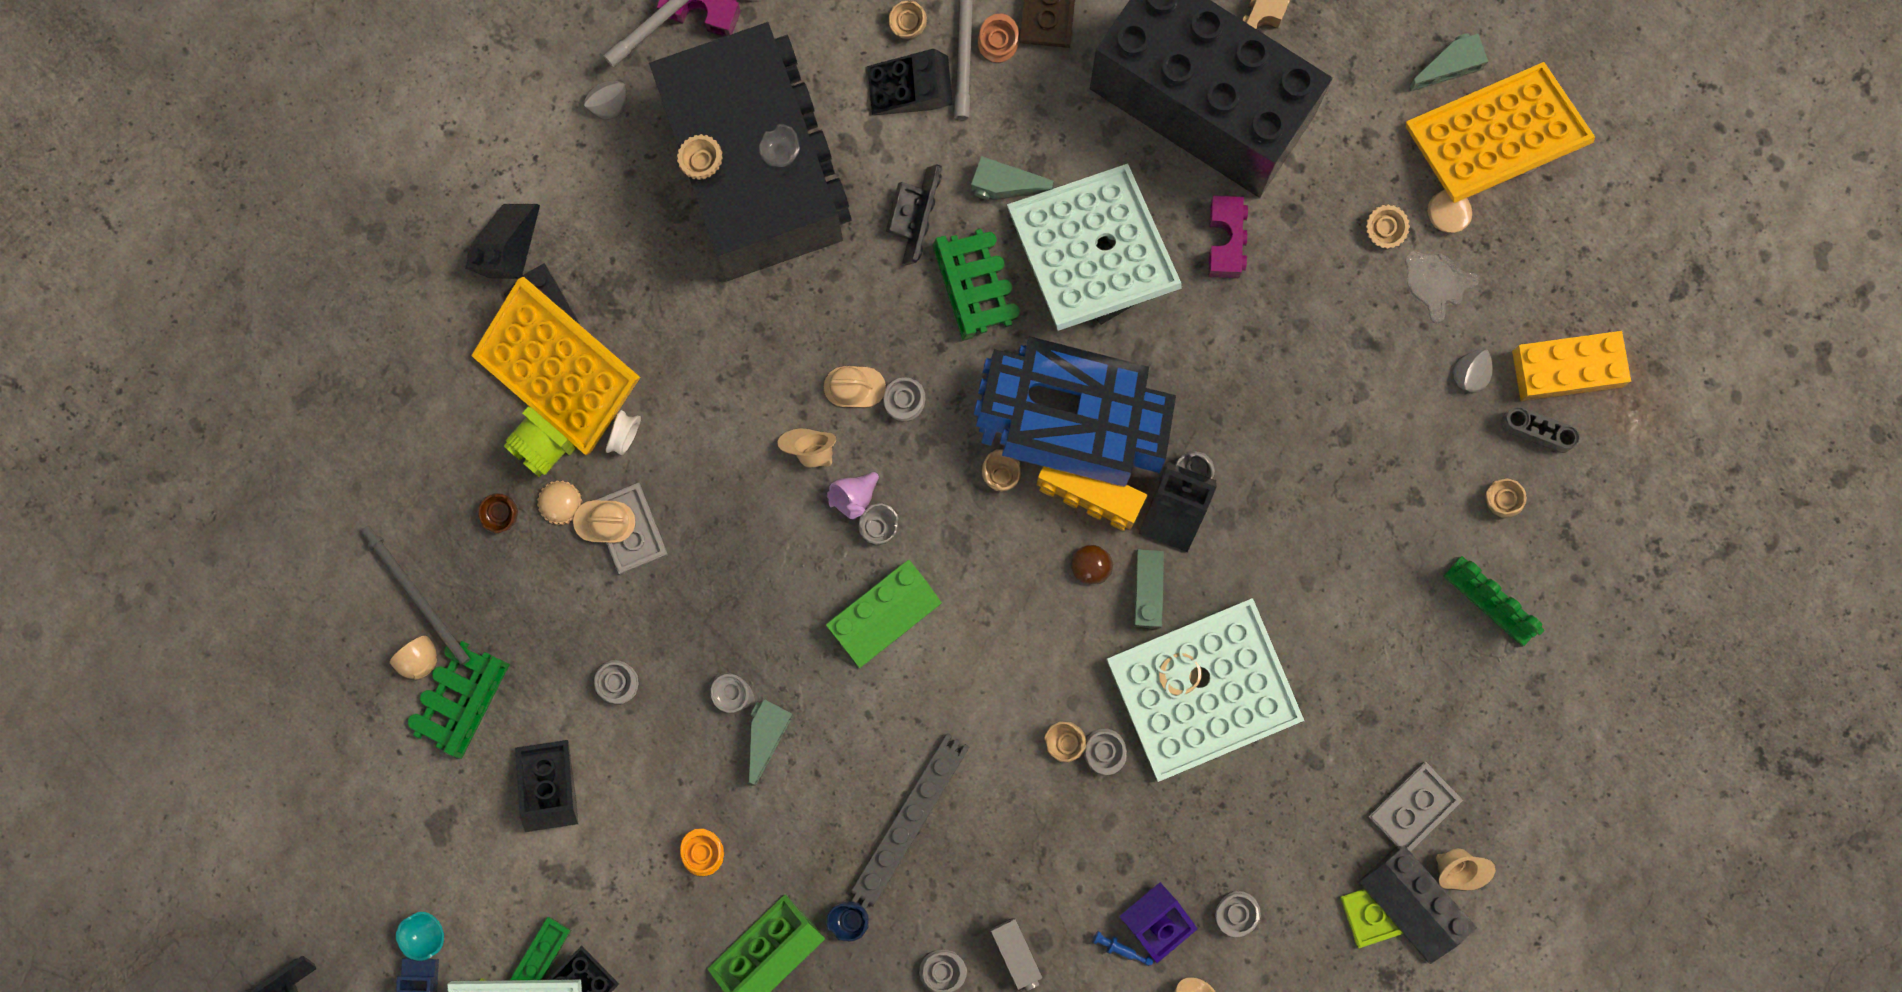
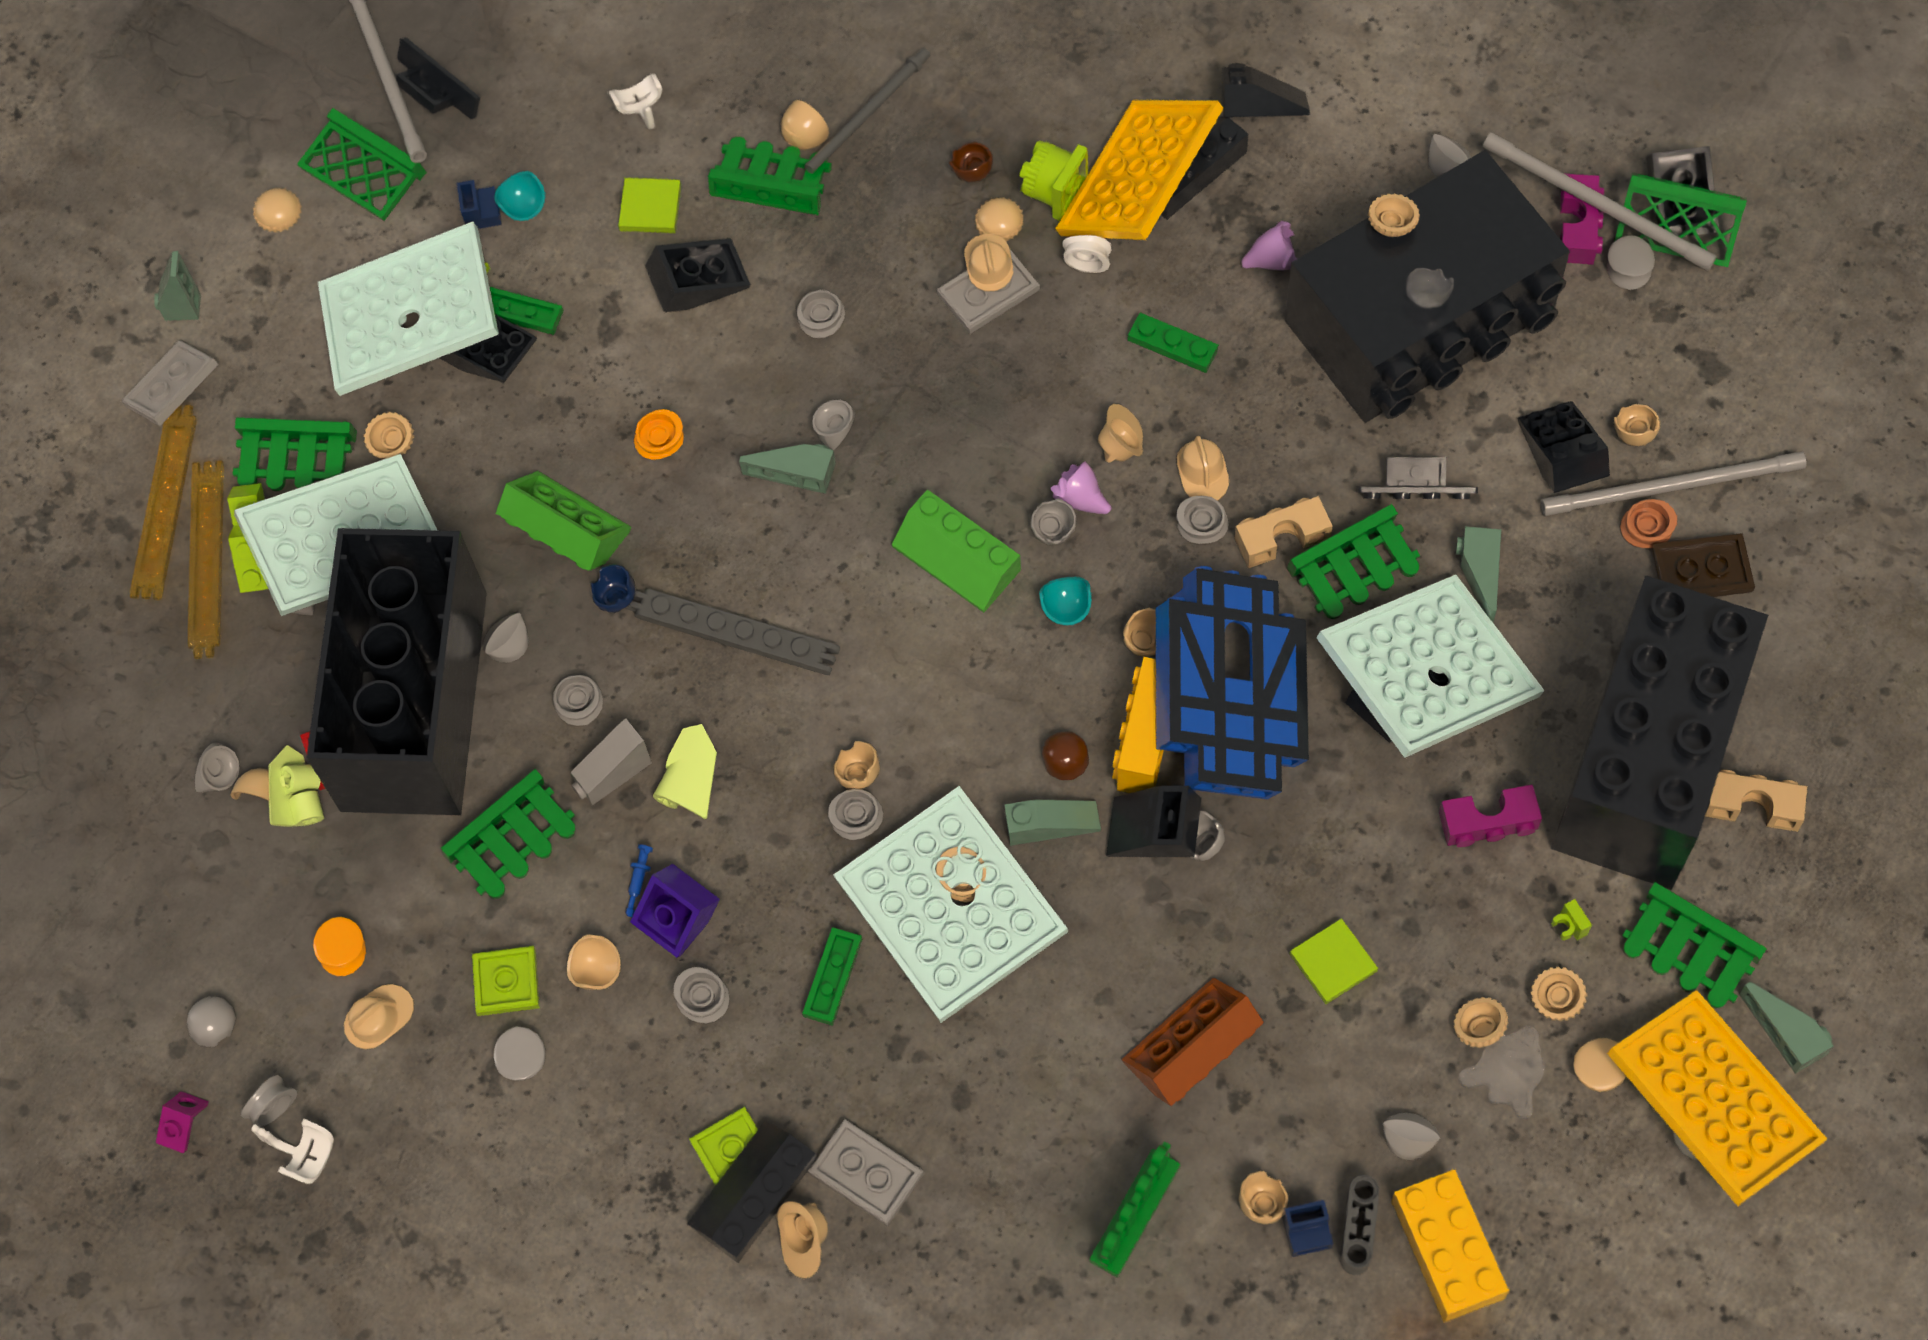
camera: 80 degrees right, 15 degrees down
(330, 799) = (648, 87): none -> white helmet
(458, 816) = (650, 205): none -> lime tile
(661, 273) = (1272, 249): none -> lavender hat
(725, 381) = (1172, 342): none -> green plate
(934, 356) = (1303, 519): none -> tan arch
(953, 529) = (1066, 600): none -> teal helmet
(1038, 886) = (689, 772): none -> yellowish green panel
(1245, 801) = (832, 976): none -> green plate
(1319, 393) = (1333, 961): none -> lime tile
(1329, 196) = (1575, 919): none -> lime tile
(1363, 521) = (1193, 1041): none -> dark orange slope
(1379, 108) = (1709, 947): none -> green fence
(1398, 292) = (1481, 1022): none -> tan hat
(1535, 469) = (1307, 1228): none -> dark blue piece

